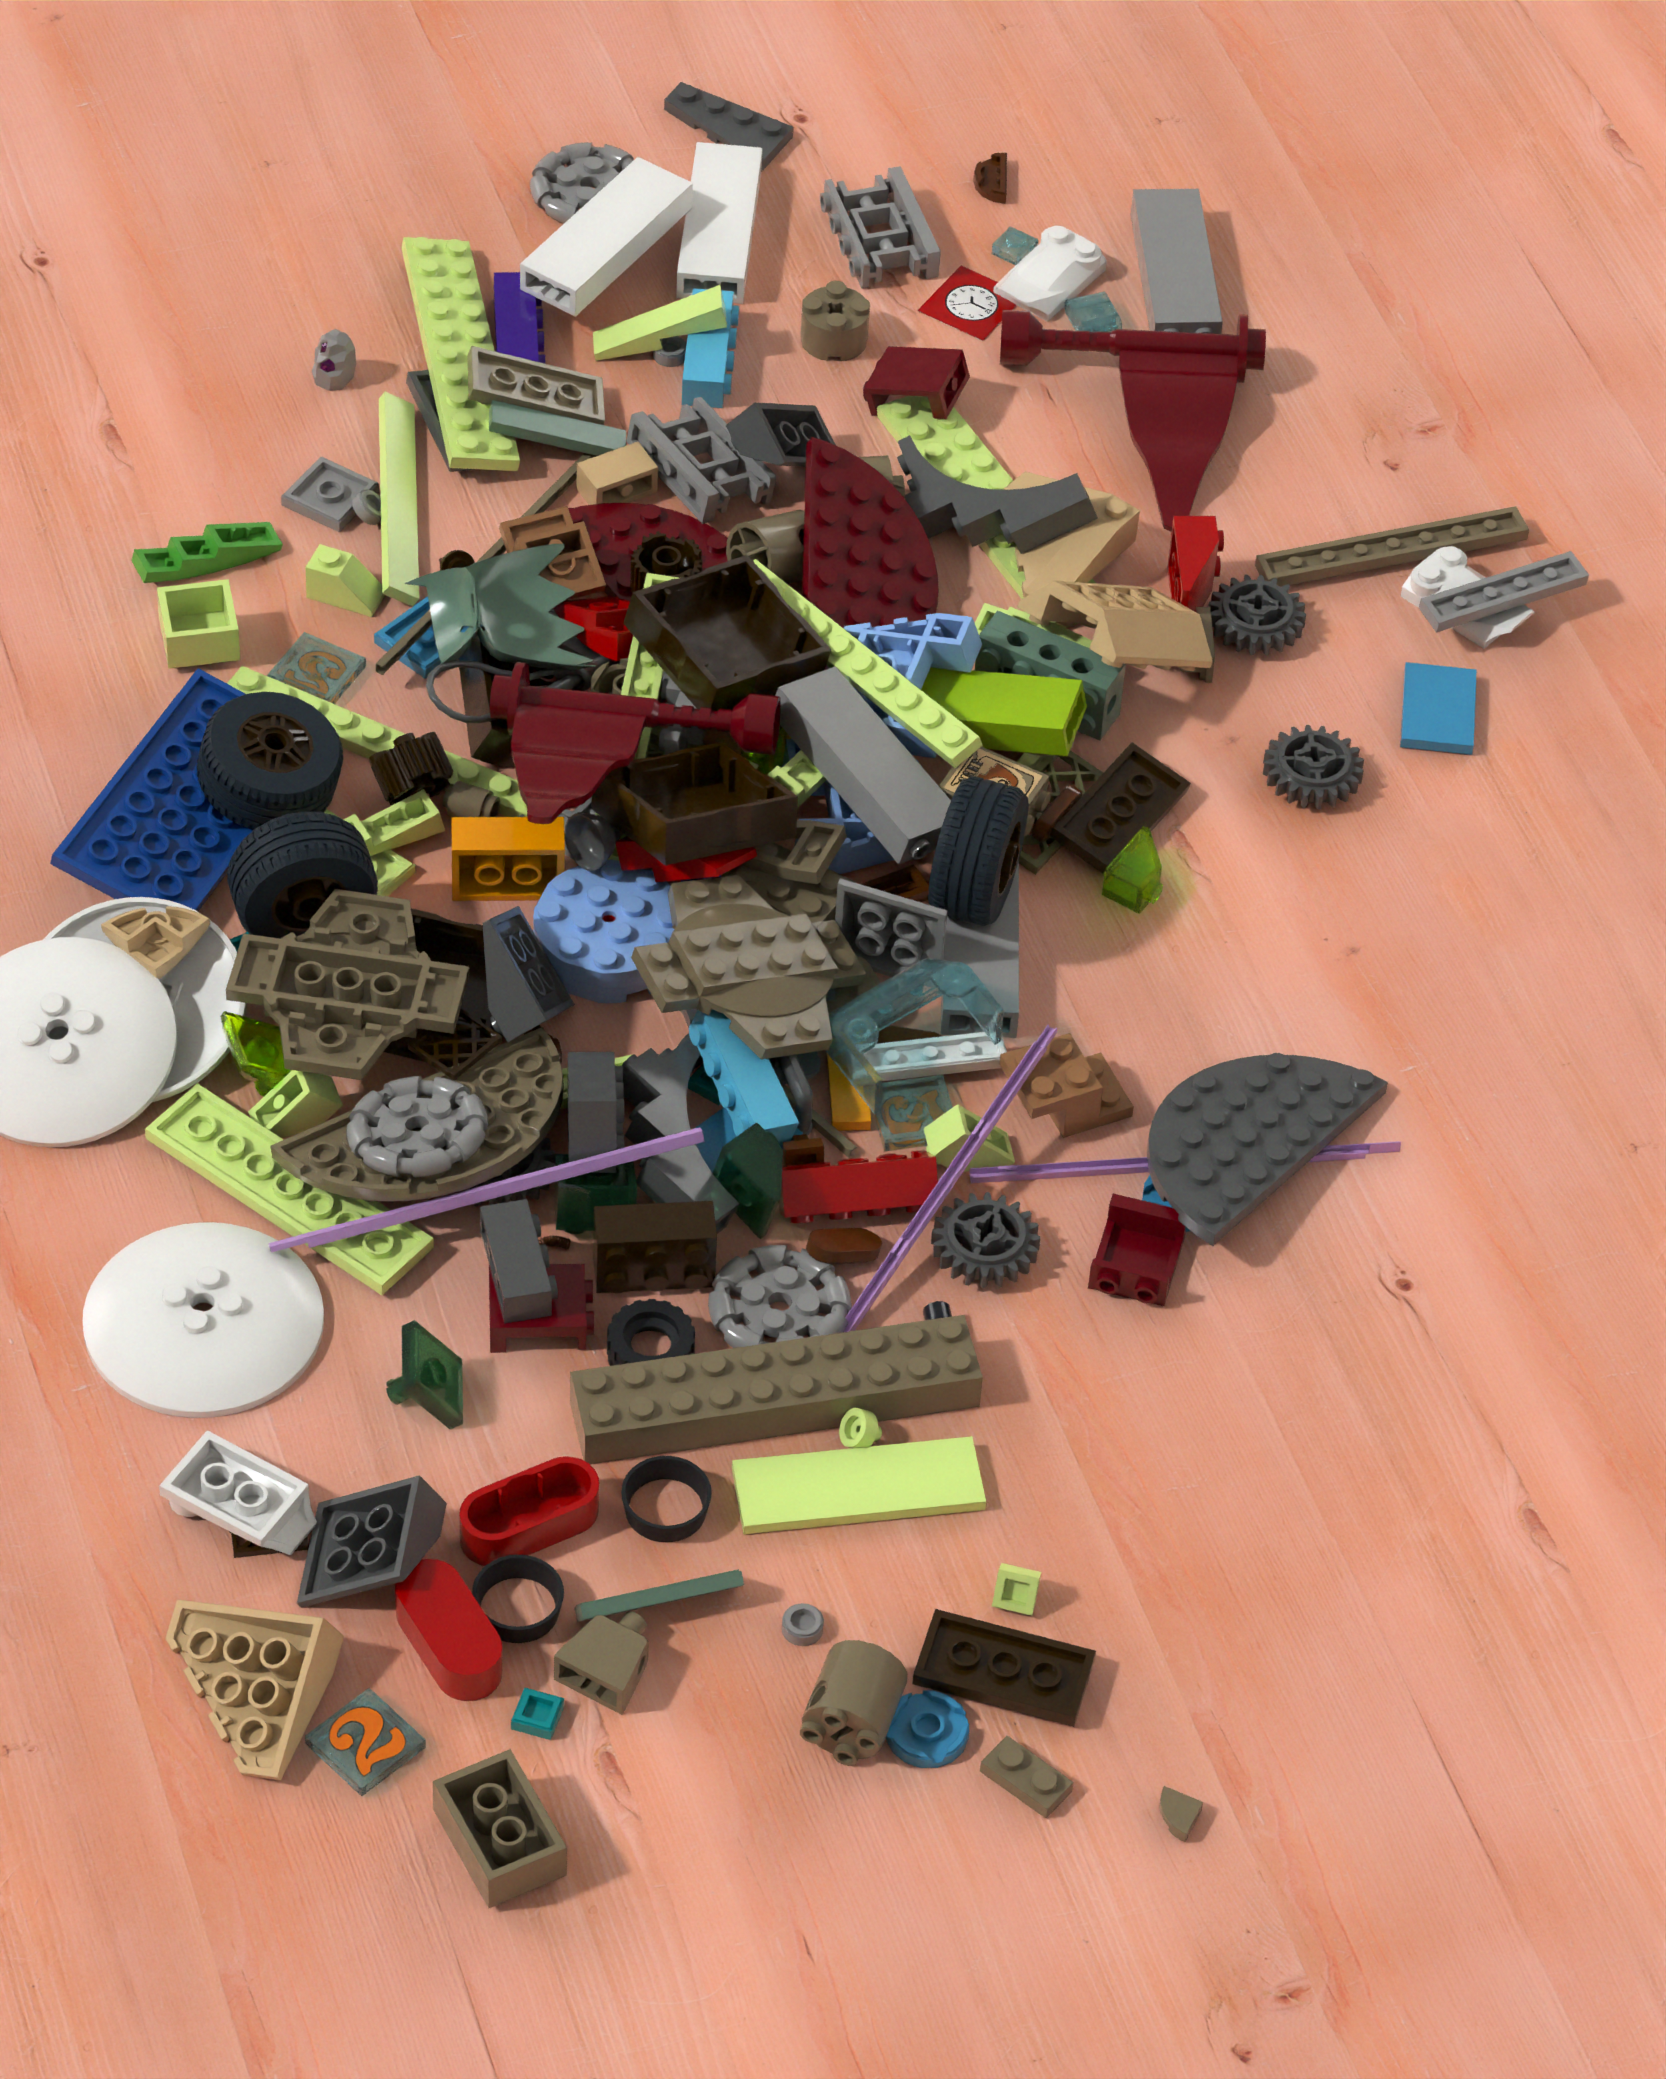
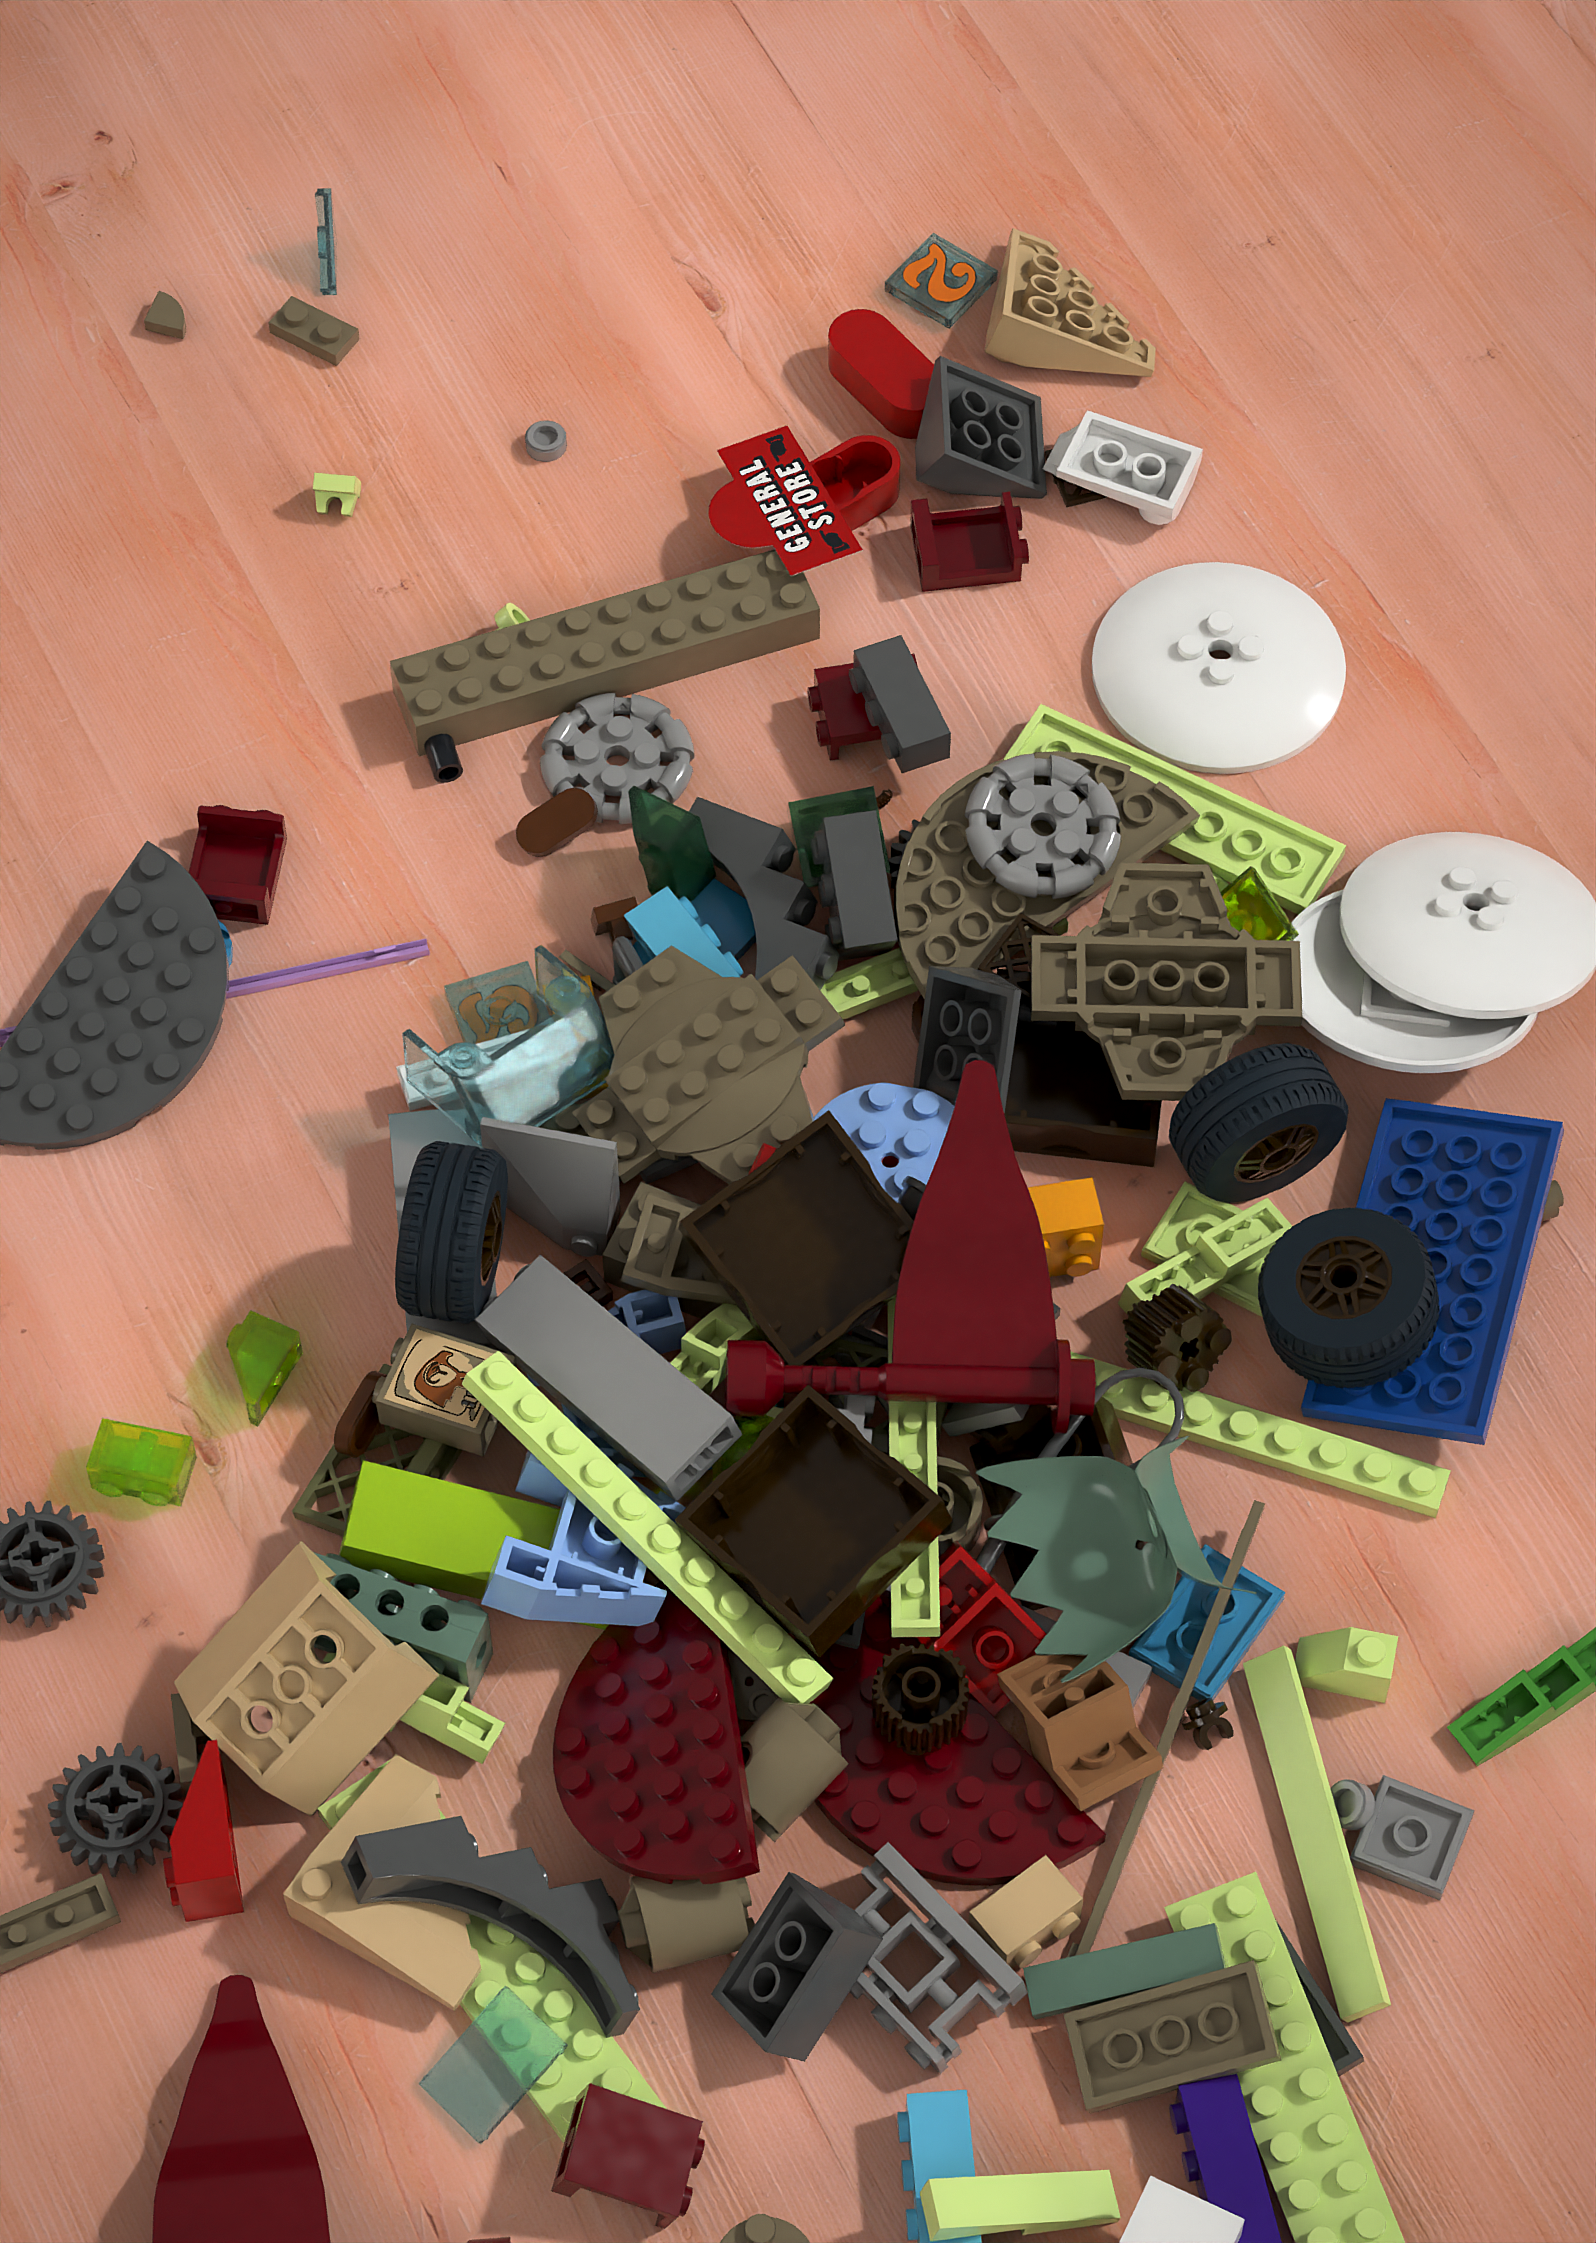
camera: 175 degrees right, 10 degrees up
(157, 937) = (1404, 1014): tan brick -> none
(198, 623) = (1510, 1541): yellowish green piece -> none
(318, 668) = (1343, 1530): clear light blue tile -> none
(334, 361) = (1474, 2066): light grey rock -> none
(409, 1449) = (968, 545): none -> dark red panel
(429, 1376) = (963, 600): clear green tile -> none
(470, 801) = (1095, 1336): dark tan brick -> none
(492, 1190) = (1144, 731): lavender piece -> none
(499, 1828) = (796, 197): dark tan brick -> none
(521, 1567) = (825, 386): black tyre -> none
(537, 1713) = (786, 327): teal tile -> none
(588, 1475) = (779, 504): none -> red sticker
(605, 1660) = (730, 367): dark tan torso -> none
(649, 1316) = (739, 662): black tyre -> none
(654, 1246) = (761, 762): dark brown brick -> none
(659, 1595) = (689, 432): sand green tile -> none
(666, 1468) = (676, 505): black tyre -> none
(854, 1701) = (483, 339): dark tan cylinder -> none
(857, 1186) = (544, 894): red wedge -> none
(858, 1485) = (531, 573): yellowish green tile -> none
(928, 1729) = (413, 362): dark azure tile -> none
(948, 1179) = (445, 883): lavender piece -> none
(953, 1128) = (430, 961): yellowish green slope -> none
(985, 1239) = (397, 842): dark grey gear -> none
(1000, 447) = (493, 2064): none -> clear light blue piece
(1004, 1667) = (343, 416): dark brown plate -> none
(1005, 1857) = (326, 241): none -> clear light blue tile
(1070, 1087) = (326, 1038): medium nougat bracket -> none
(1121, 801) = (280, 1456): dark brown plate -> none
(1232, 820) = (141, 1463): none -> clear neon green brick

